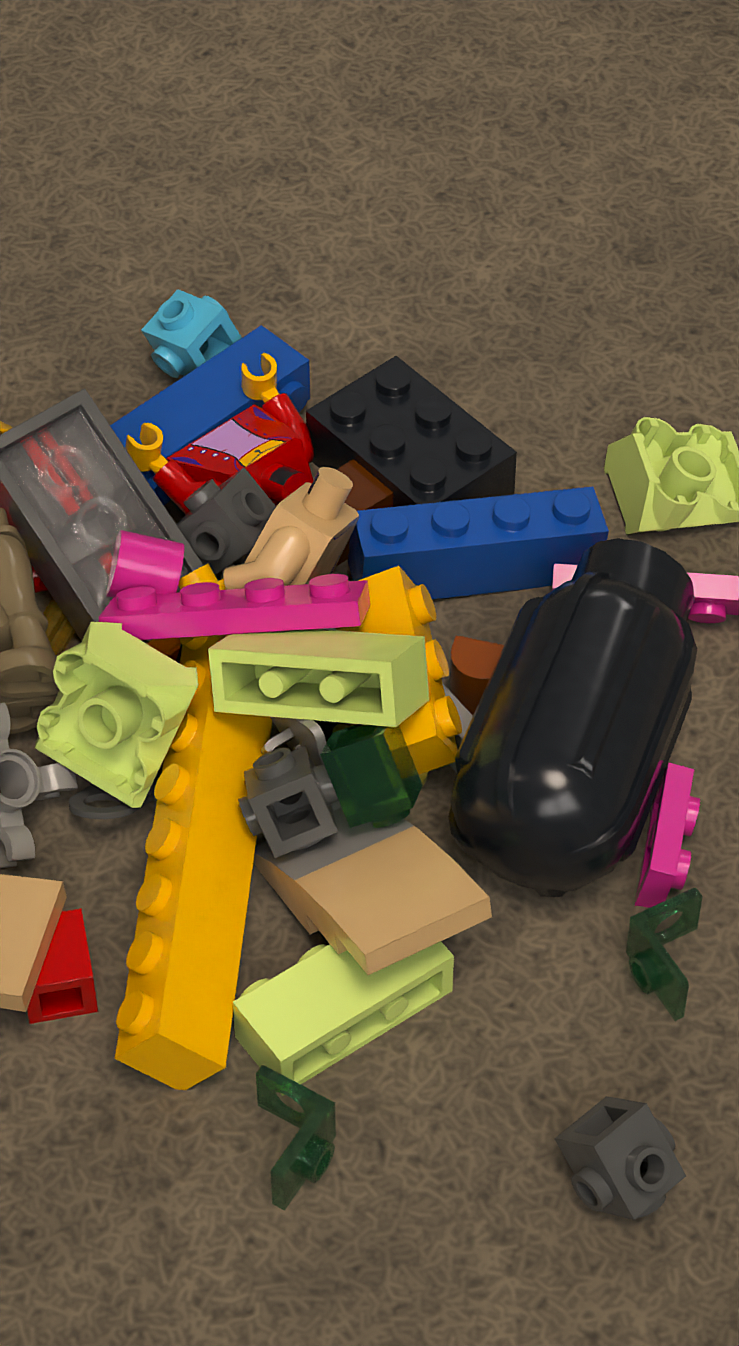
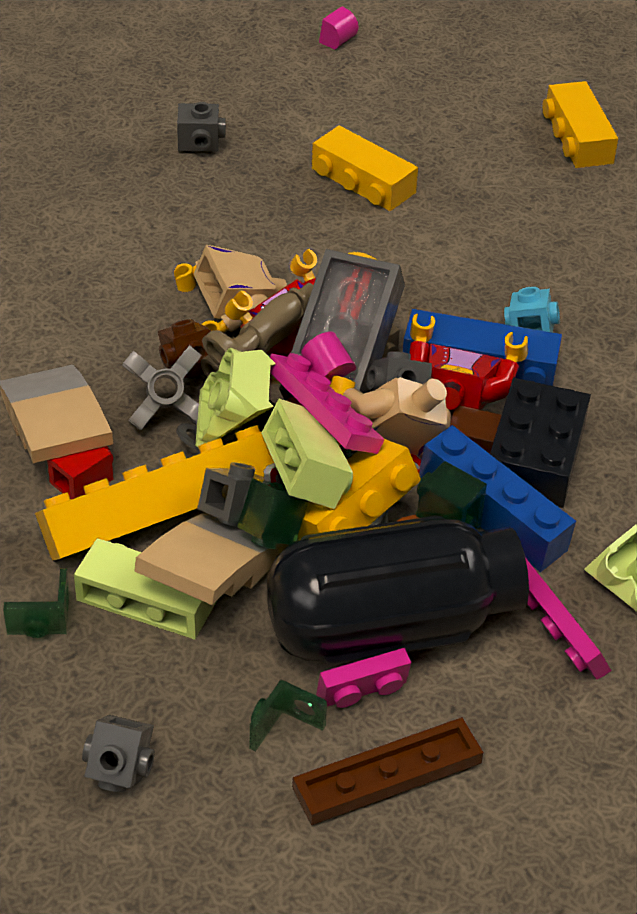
camera: 55 degrees right, 5 degrees down
(477, 588) = (451, 495): none -> clear green brick

